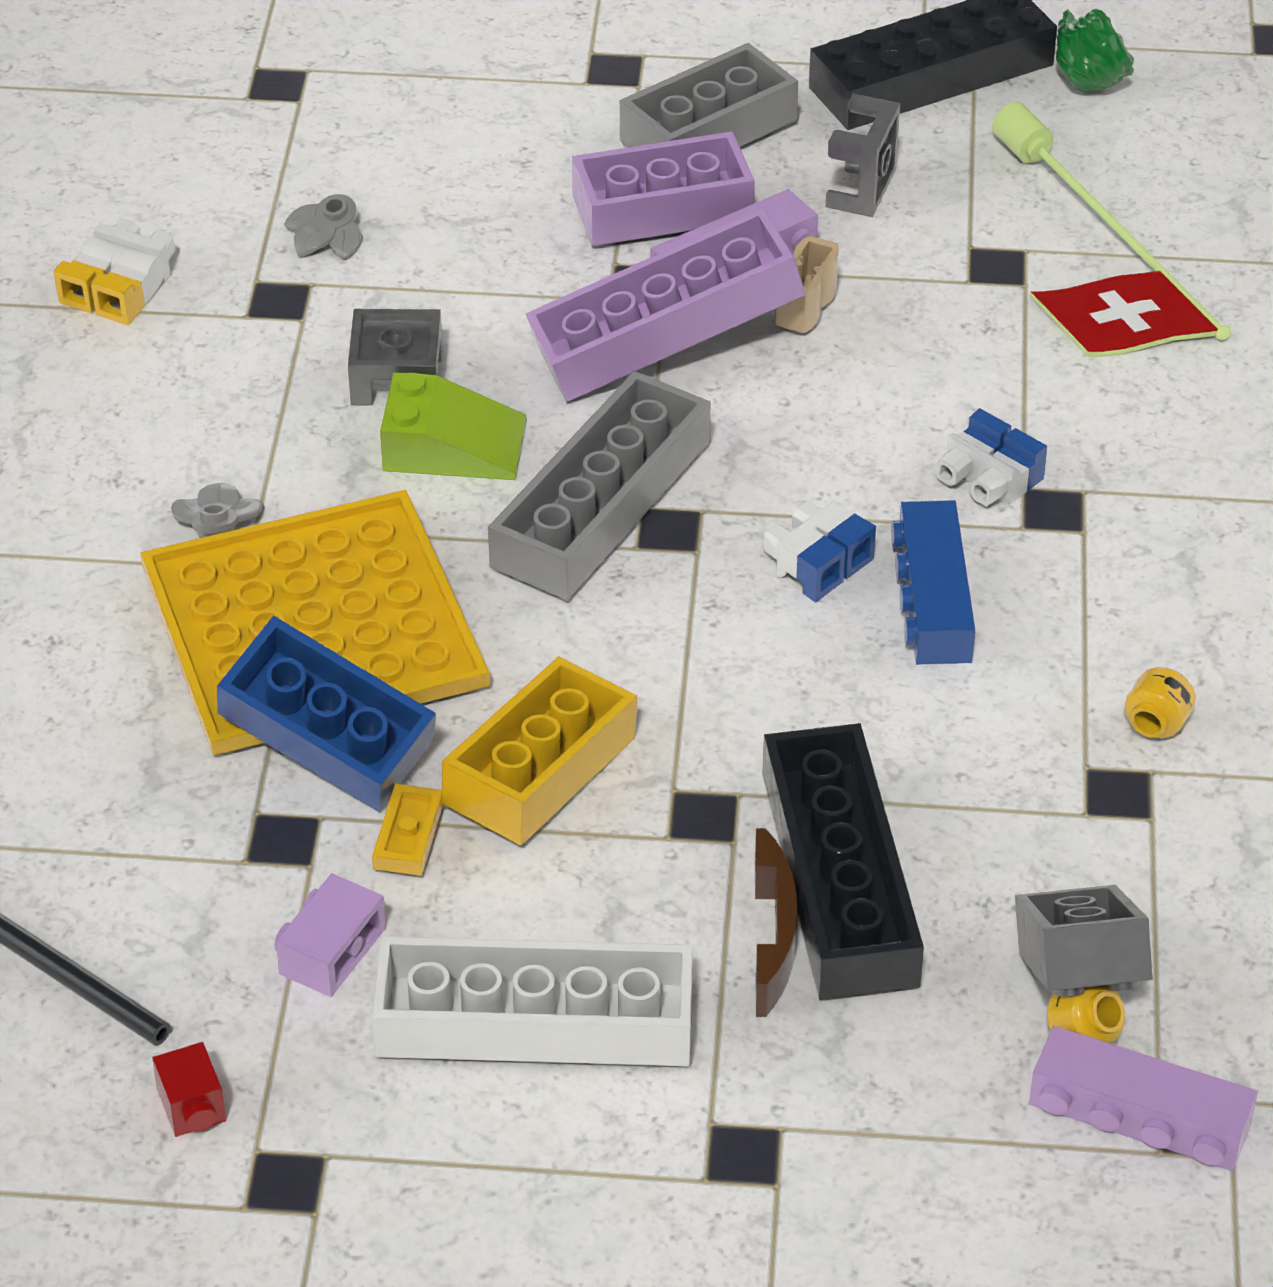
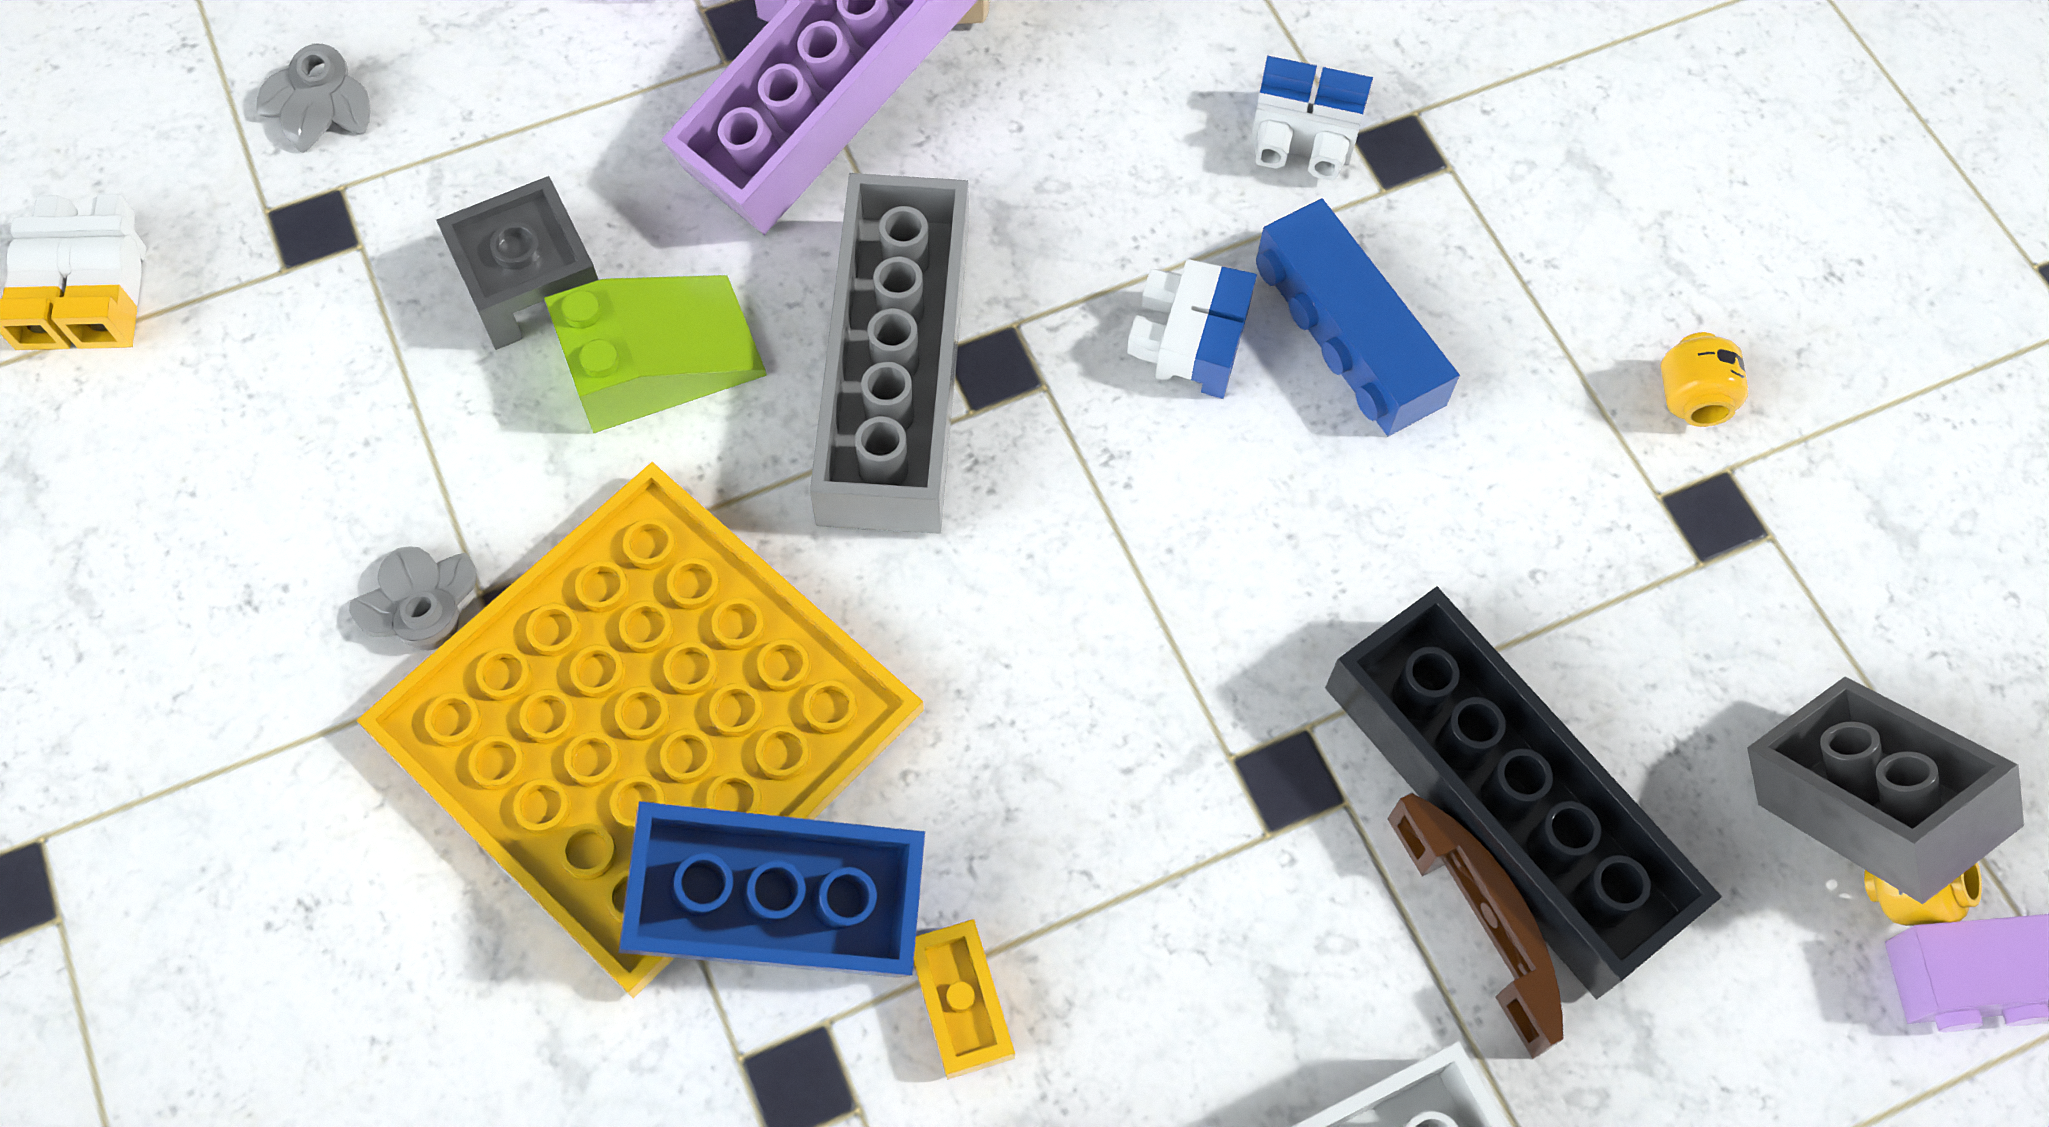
camera: 30 degrees left, 20 degrees up
(538, 750) = (1060, 801): yellow brick -> none

